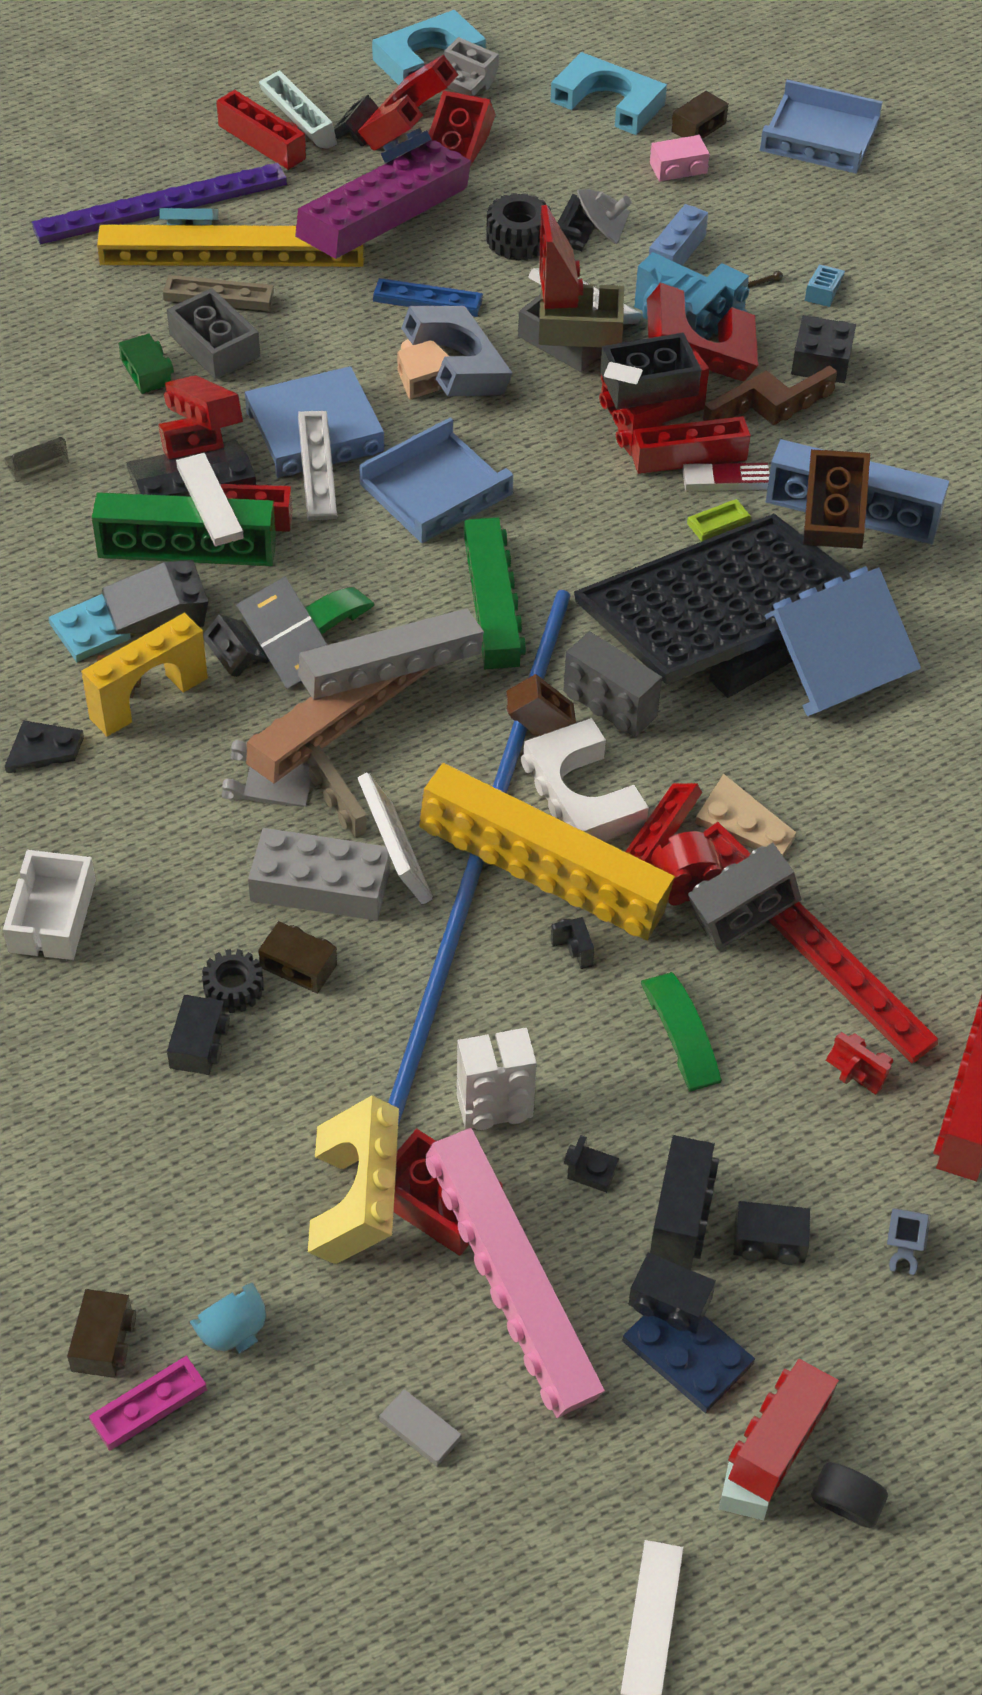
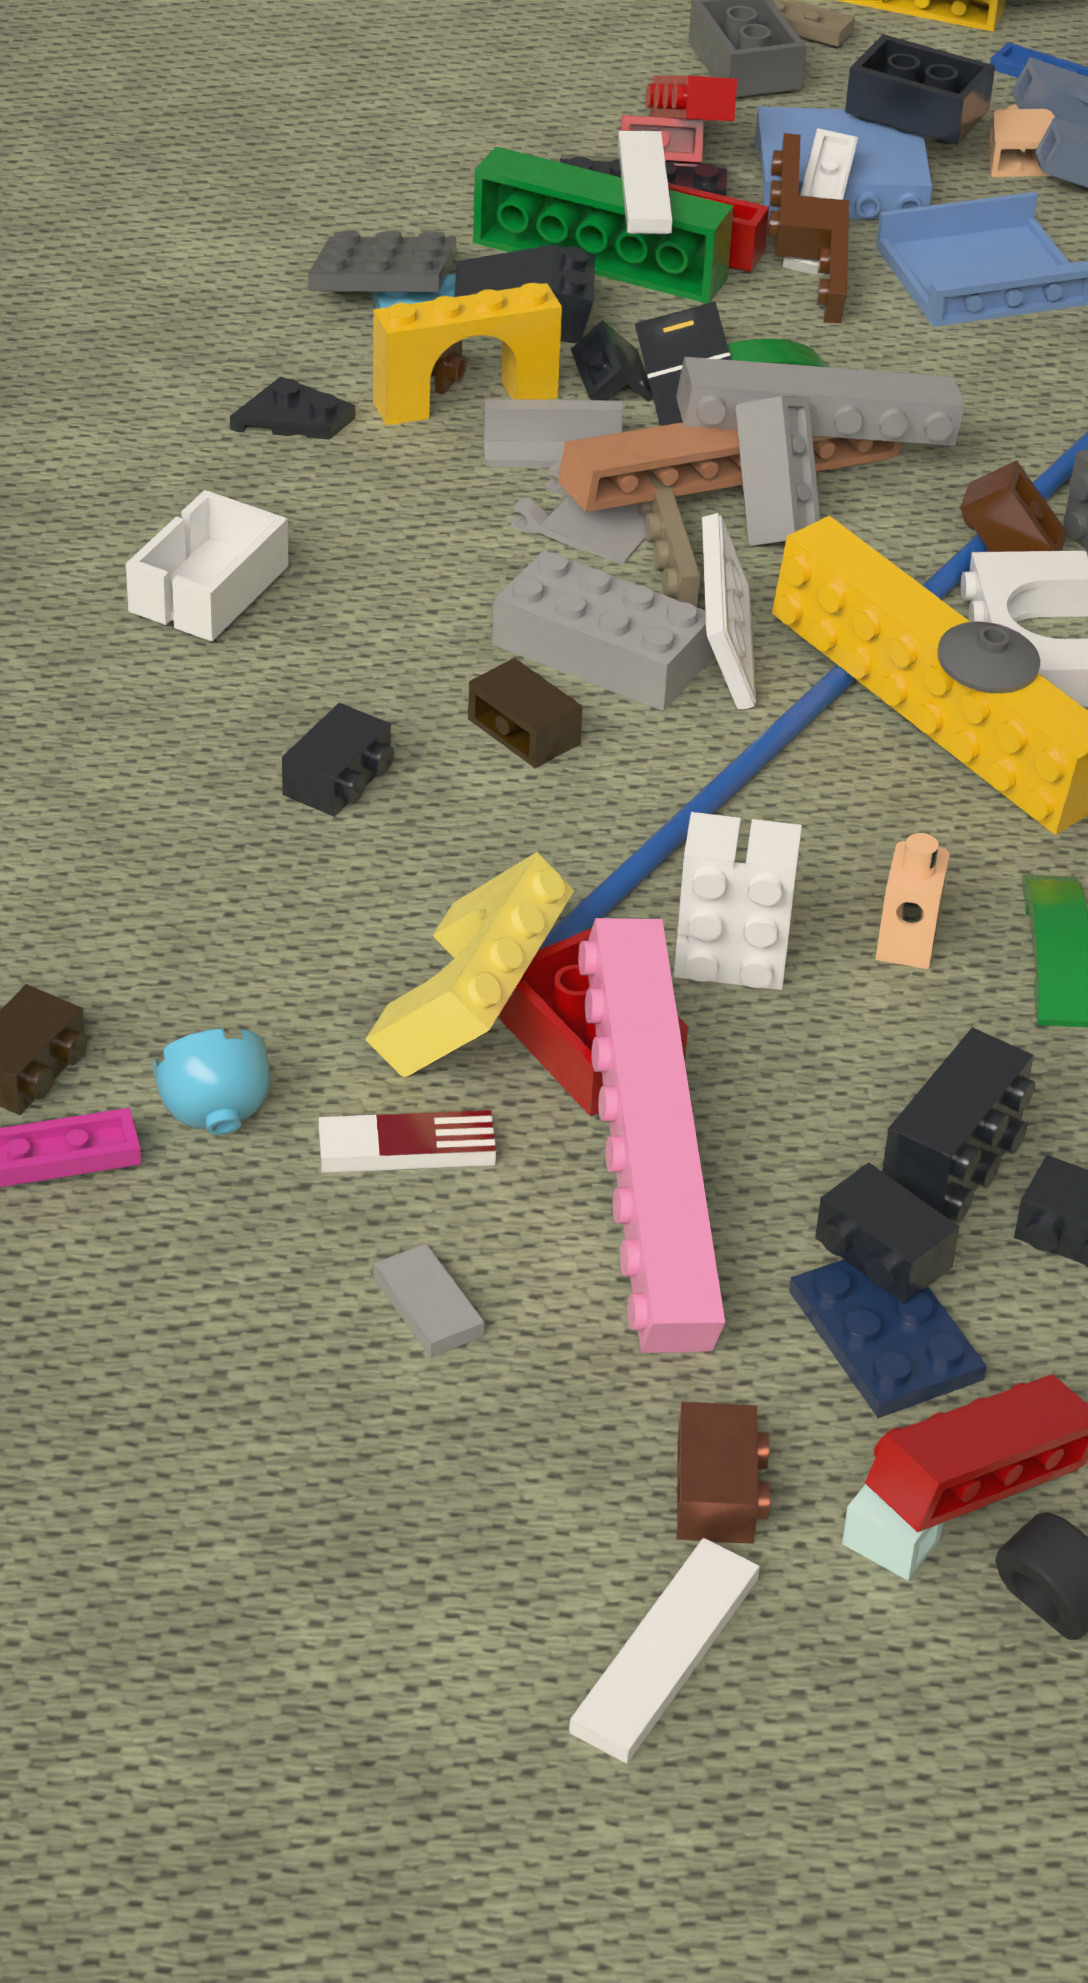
camera: 20 degrees right, 10 degrees down
(38, 459) = (444, 120): clear smoke panel -> none
(52, 603) = (383, 262): none -> dark grey plate
(145, 362) = (637, 55): green brick -> none
(220, 716) = (536, 430): none -> light grey panel
(230, 965) = (422, 735): black tyre -> none
(321, 494) = (810, 228): none -> reddish brown bracket
(350, 356) = (919, 89): none -> black brick
(359, 1314) = (406, 1141): none -> white tile
(384, 715) = (777, 467): none -> light grey panel
(492, 593) = (1009, 390): green brick -> none
(576, 936) = (942, 790): black bracket -> none
(578, 853) = (988, 657): none -> dark grey dish
(590, 1165) = (838, 1064): black bracket -> none
(591, 1023) = (918, 878): none -> light nougat torso
(637, 1492) = (719, 1473): none -> copper brick

